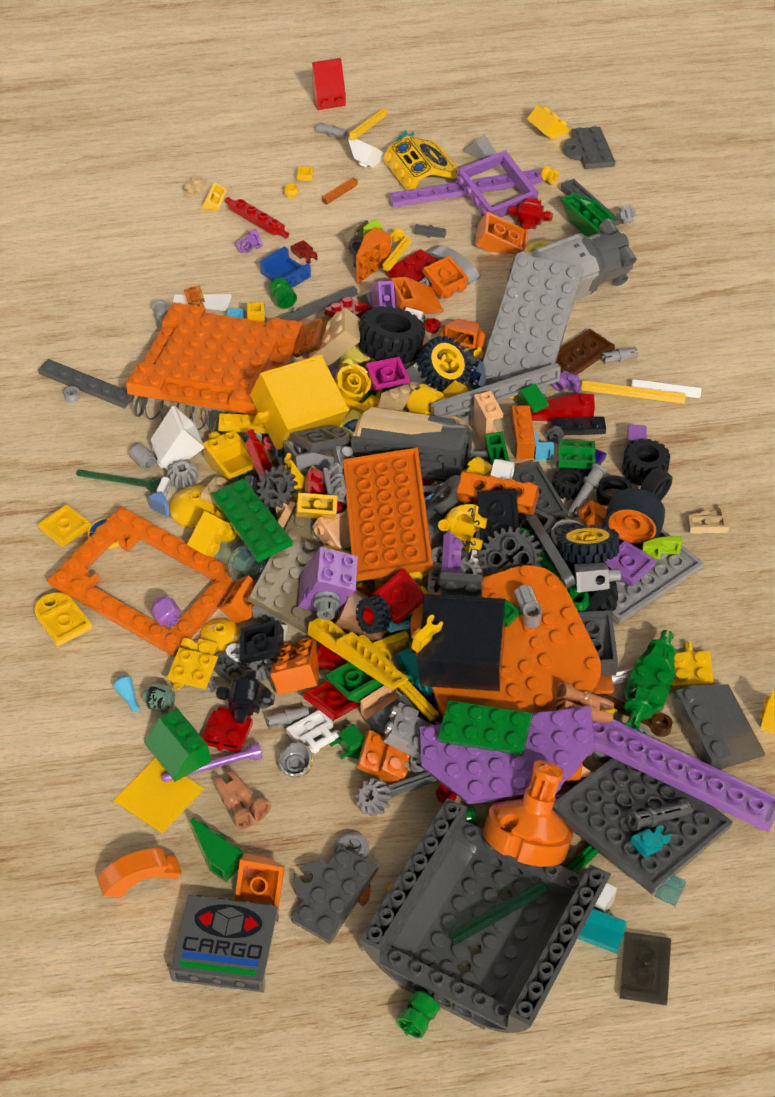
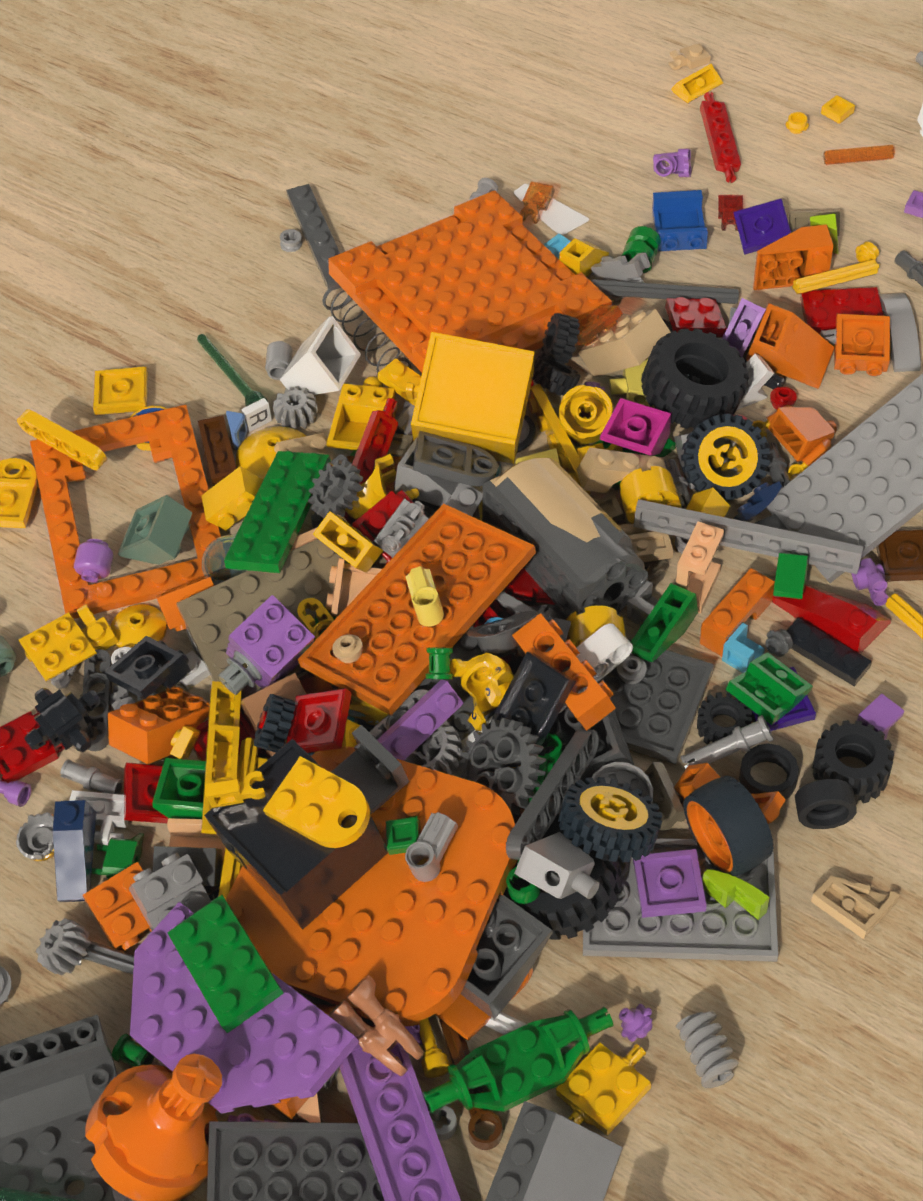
camera: 45 degrees right, 5 degrees up
(51, 564) = (62, 439): none -> yellow beam
(163, 519) = (217, 448): none -> reddish brown plate
(185, 575) = (156, 531): none -> sand green slope
(285, 306) = (619, 269): none -> light grey piece
(297, 346) = (560, 338): none -> black tyre
(324, 661) = (184, 741): none -> yellow plate
(326, 750) = (73, 848): none -> slope
(334, 248) = (761, 225): none -> dark purple plate
(378, 552) = (348, 648): none -> tan plate
(394, 502) = (424, 596): none -> light yellow piece
(436, 527) = (439, 663): none -> green bush
(474, 611) = (316, 803): none -> yellow plate
(678, 630) = (636, 1022): none -> medium lavender plant
(717, 619) = (706, 1048): none -> light grey piece

